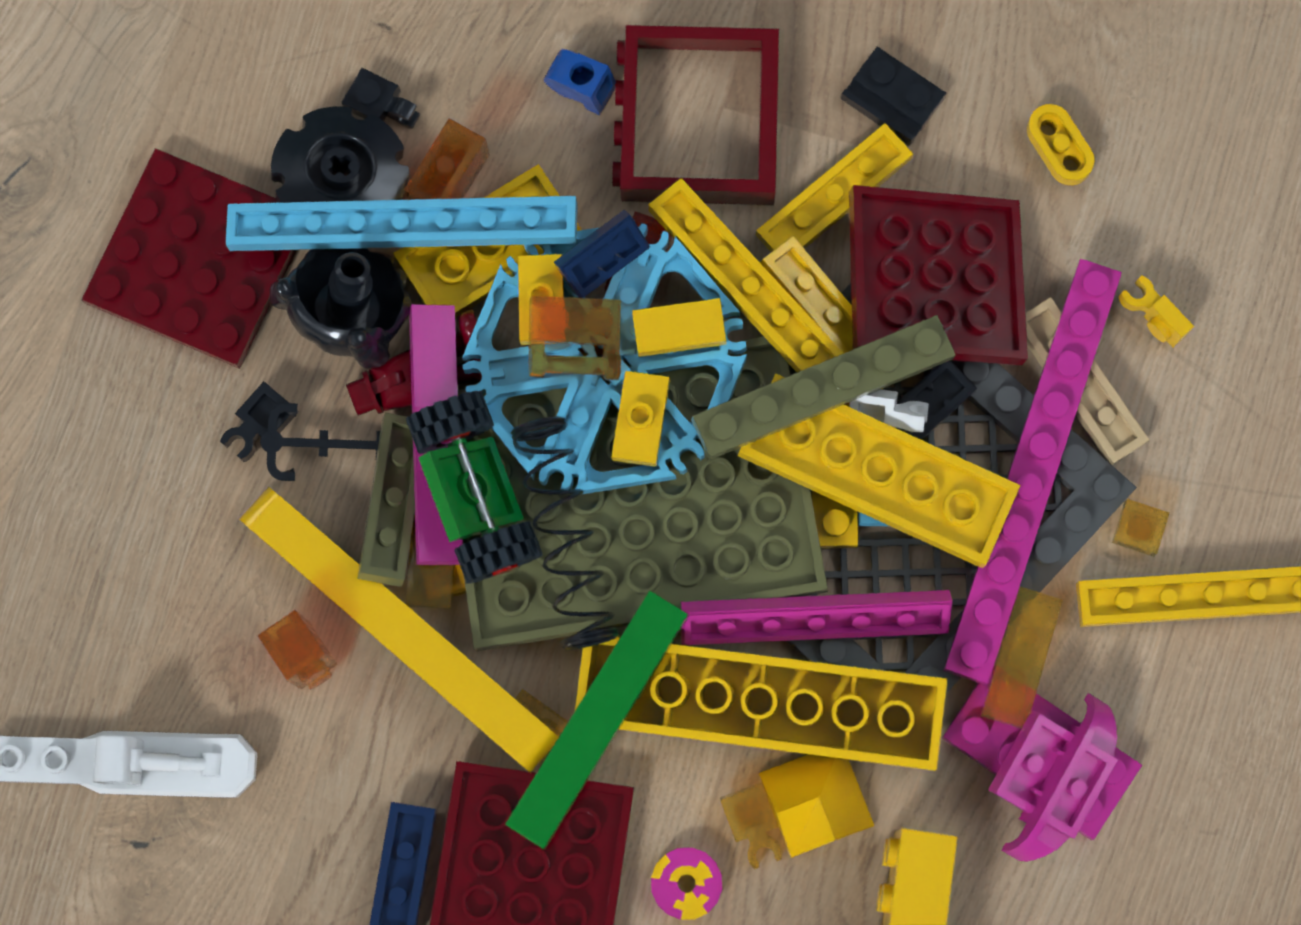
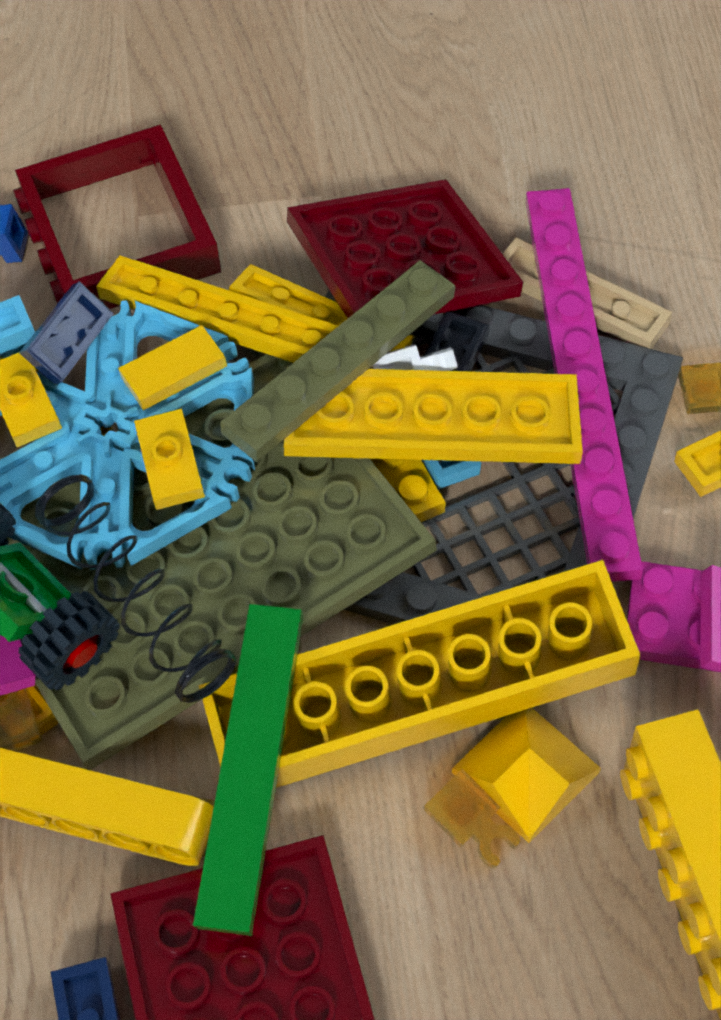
camera: 25 degrees left, 20 degrees down
(574, 322) = (65, 397): clear orange plate -> none
(707, 883) = (434, 942): dark pink piece -> none
(816, 617) = (440, 576): dark pink tile -> none
(828, 197) = (271, 238): yellow plate -> none
(893, 95) = (290, 150): black plate -> none
(1021, 657) = (663, 538): clear yellow plate -> none
(1063, 145) = (459, 129): yellow plate -> none
(1163, 316) = (625, 214): yellow plate -> none

